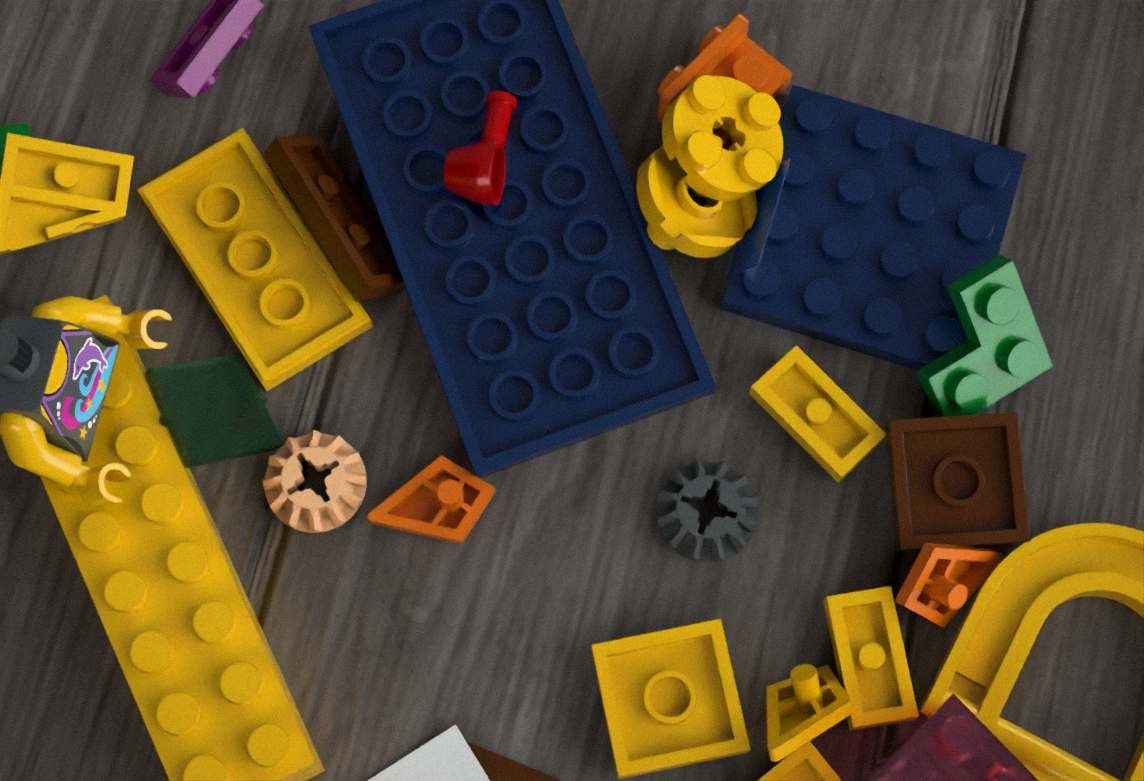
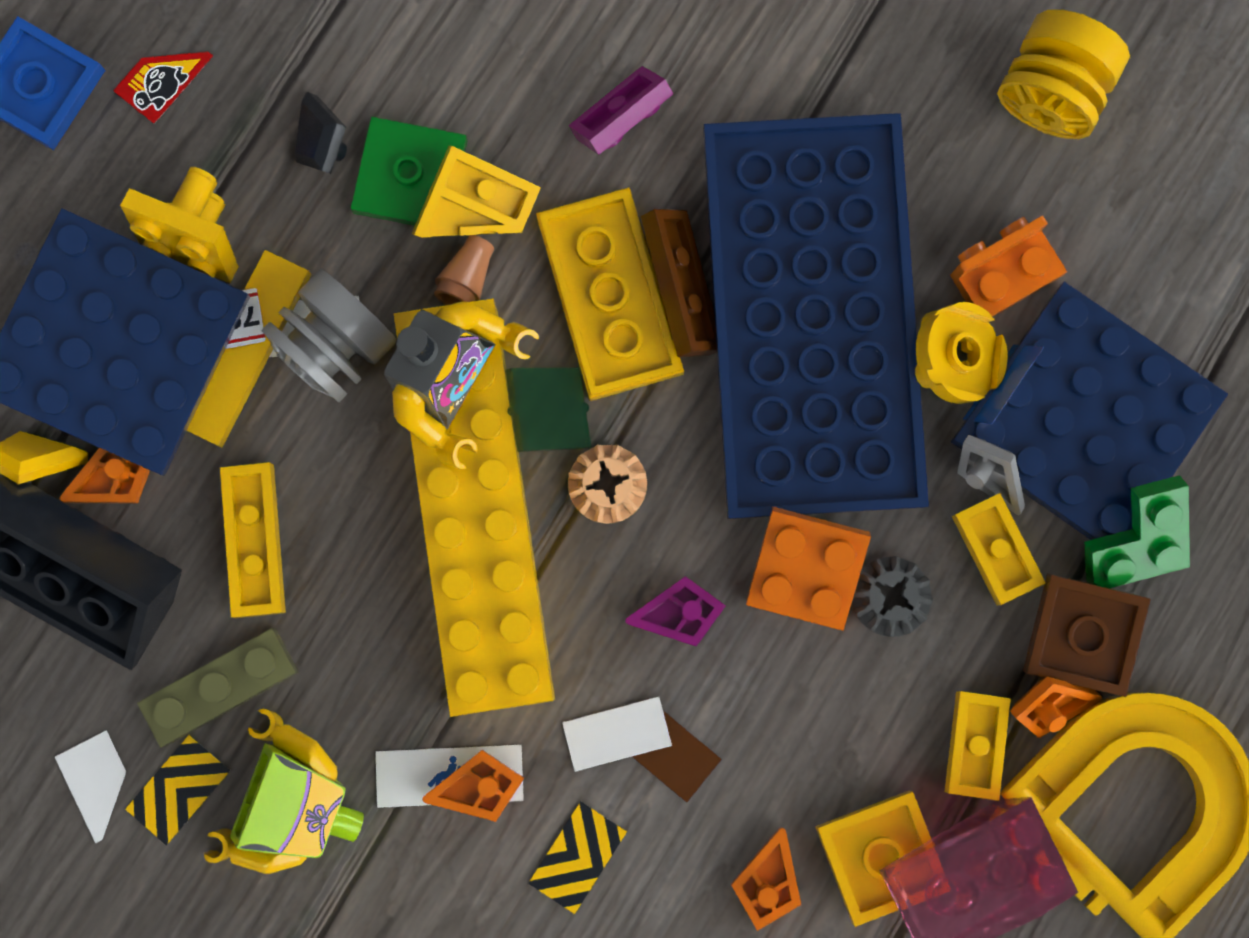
camera: 15 degrees right, 10 degrees up
(69, 271) = (465, 273): none -> nougat cone
(436, 503) = (693, 528): orange piece -> none
(449, 611) = (679, 613): none -> magenta piece
(480, 168) = (801, 283): red bar -> none
(592, 506) = (808, 568): none -> orange plate
(670, 699) = (821, 729): yellow plate -> none
(747, 118) = (1022, 314): yellow plate -> none
(778, 323) = (992, 471): none -> light grey piece
(803, 708) = (916, 768): yellow piece -> none

